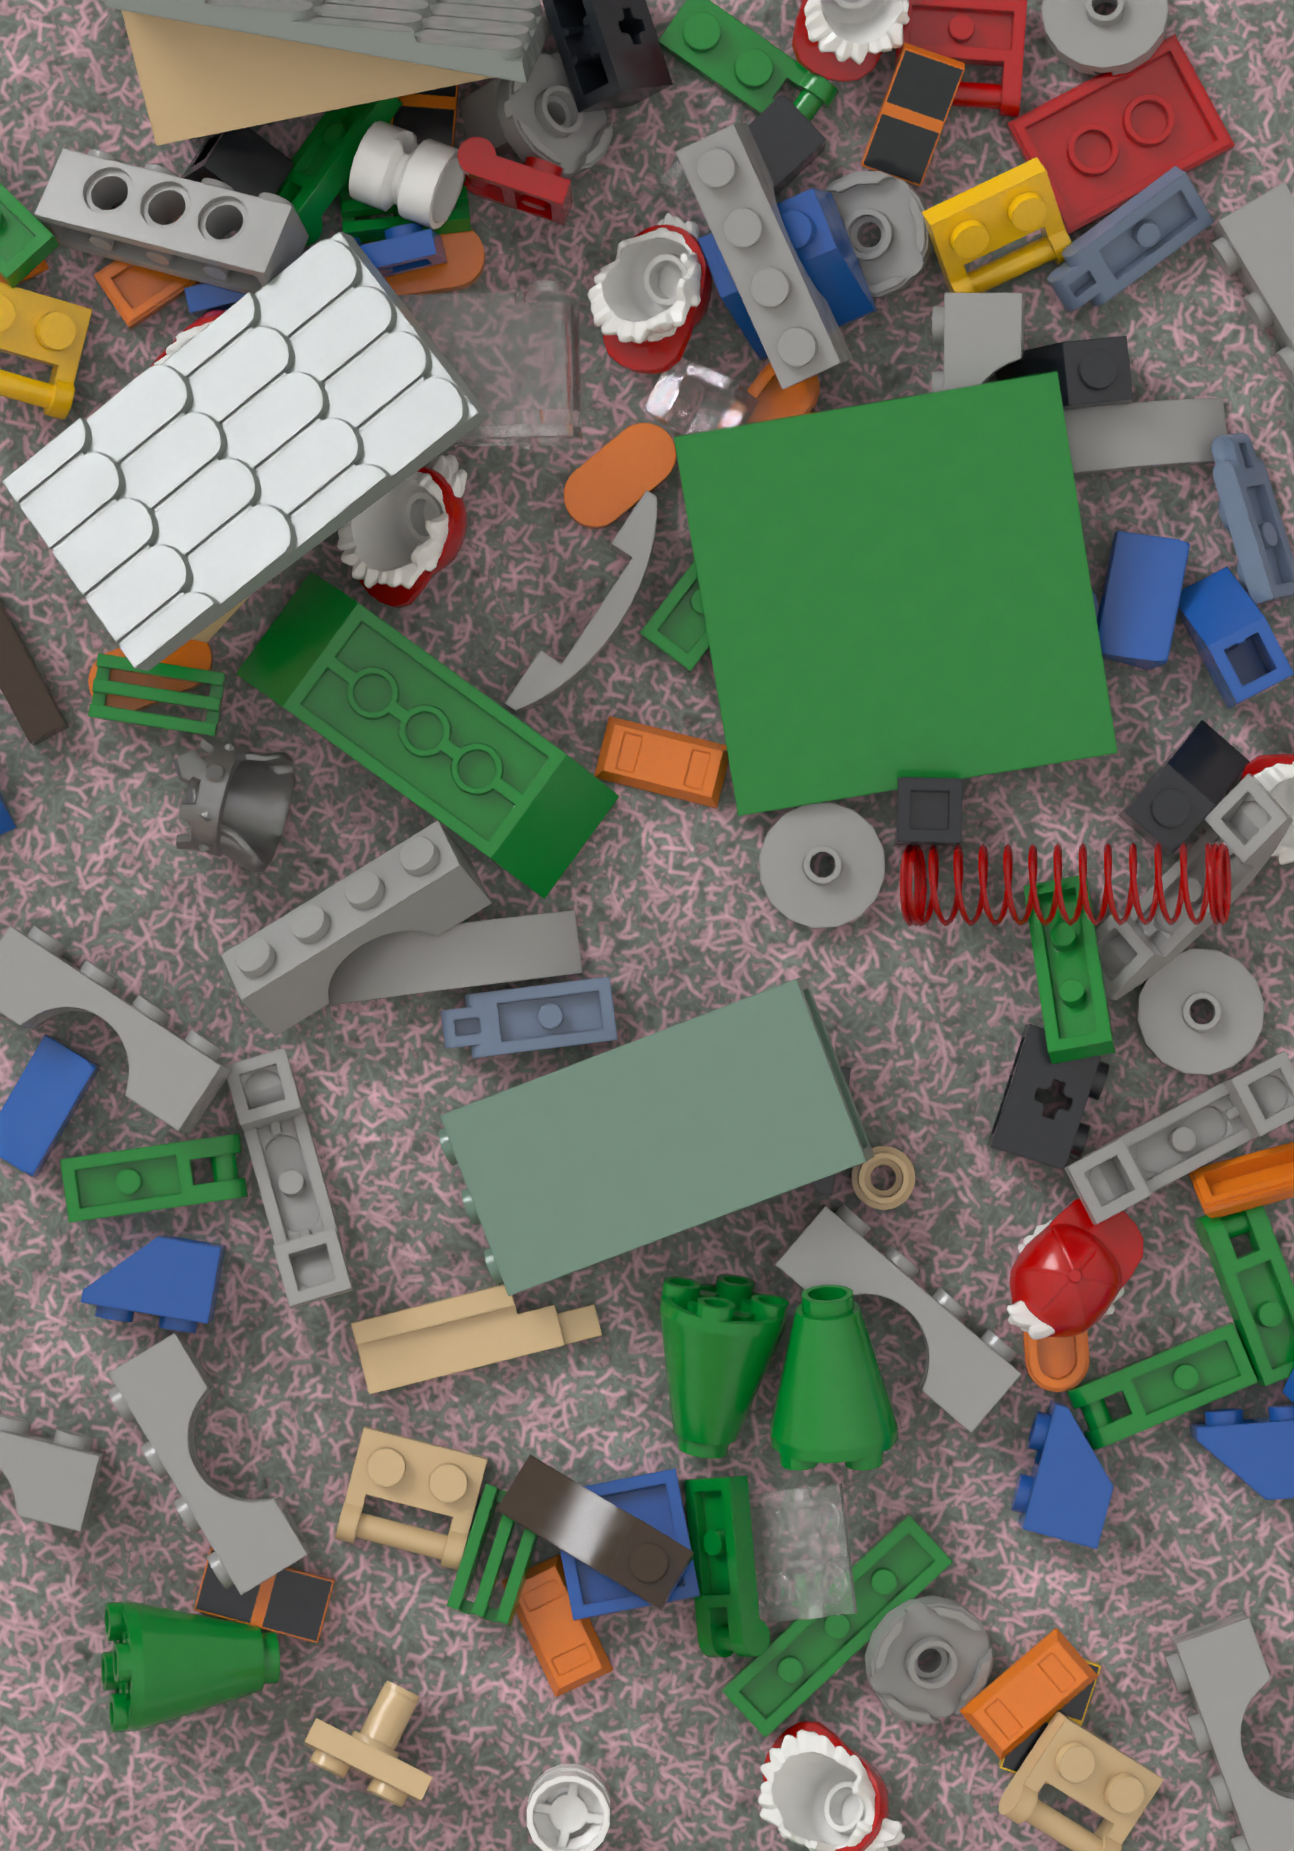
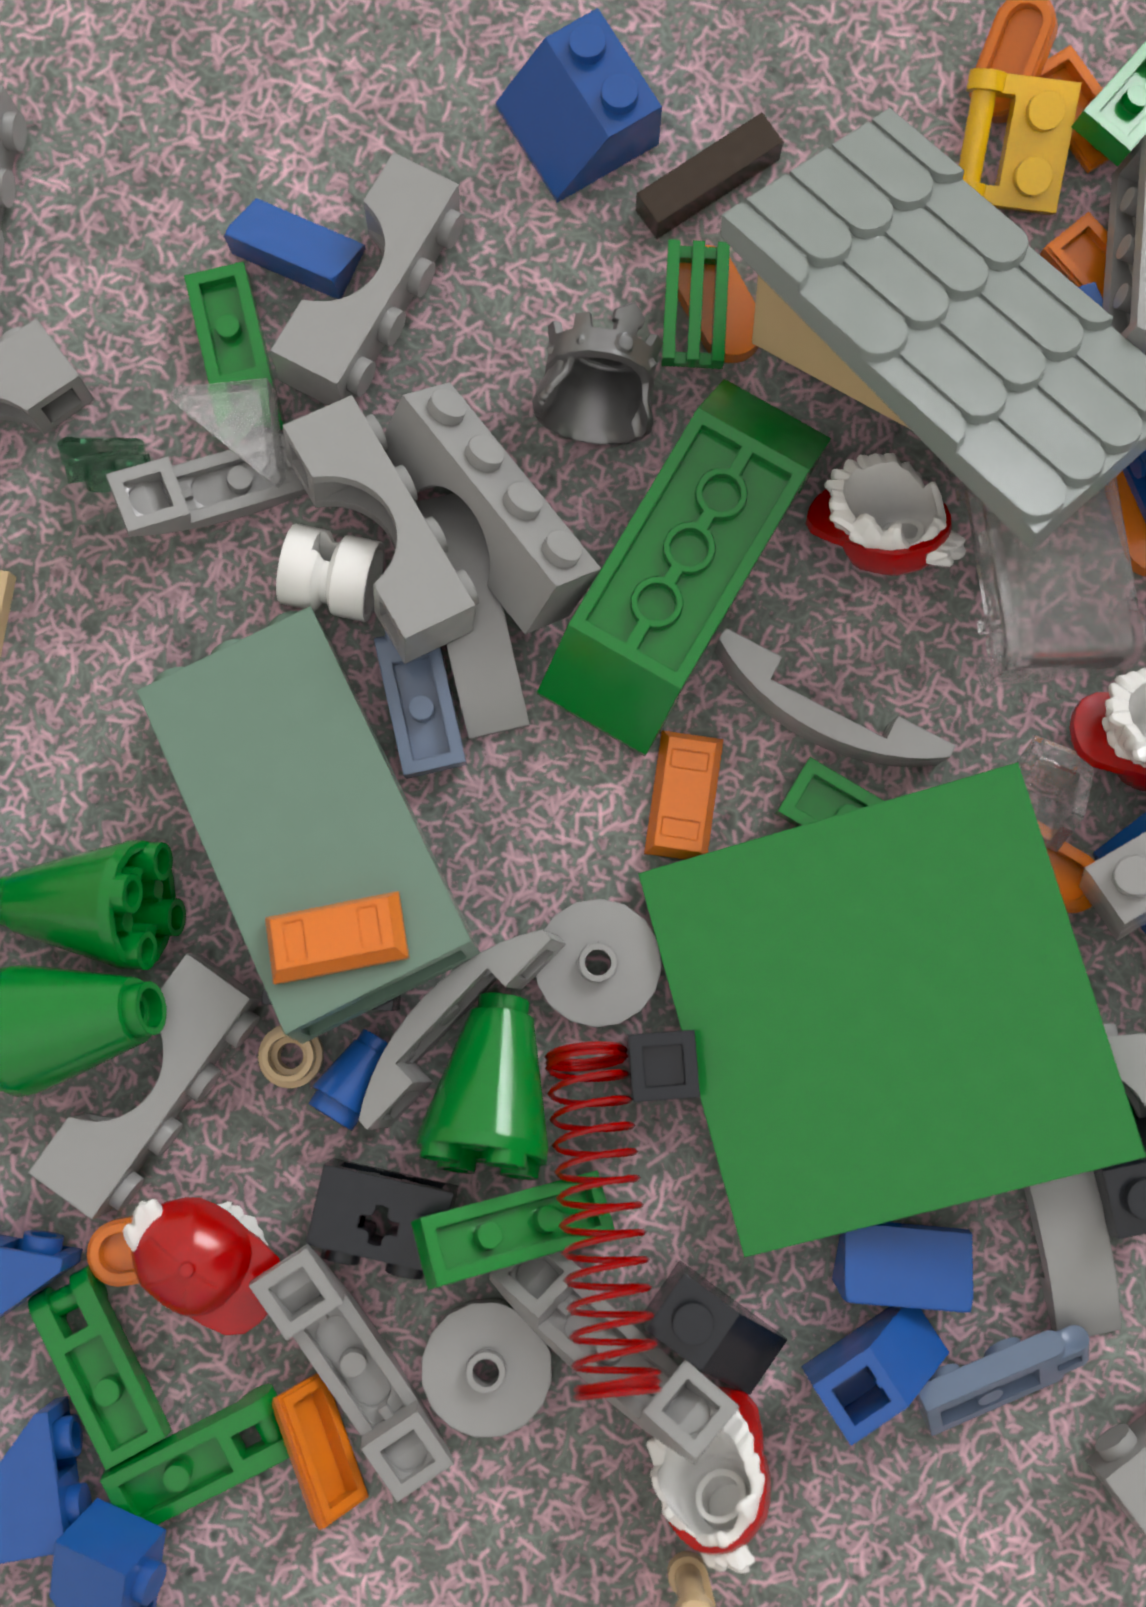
camera: 90 degrees right, 5 degrees down
(165, 1279) = (131, 369): blue slope -> none
(241, 1170) = (241, 418): none -> clear slope
(258, 1320) = (95, 457): none -> clear green animal
(297, 1067) = (346, 466): none -> light grey arch
(402, 1095) = (323, 571): none -> white wheel
(461, 1336) = (104, 656): tan piece -> none
(619, 475) = (960, 716): orange tile -> none
(780, 1106) = (336, 938): none -> orange tile
(914, 1117) = (345, 1082): none -> blue cone
(918, 1069) = (397, 1077): none -> light grey slope
(941, 981) = (490, 1095): none -> green cone

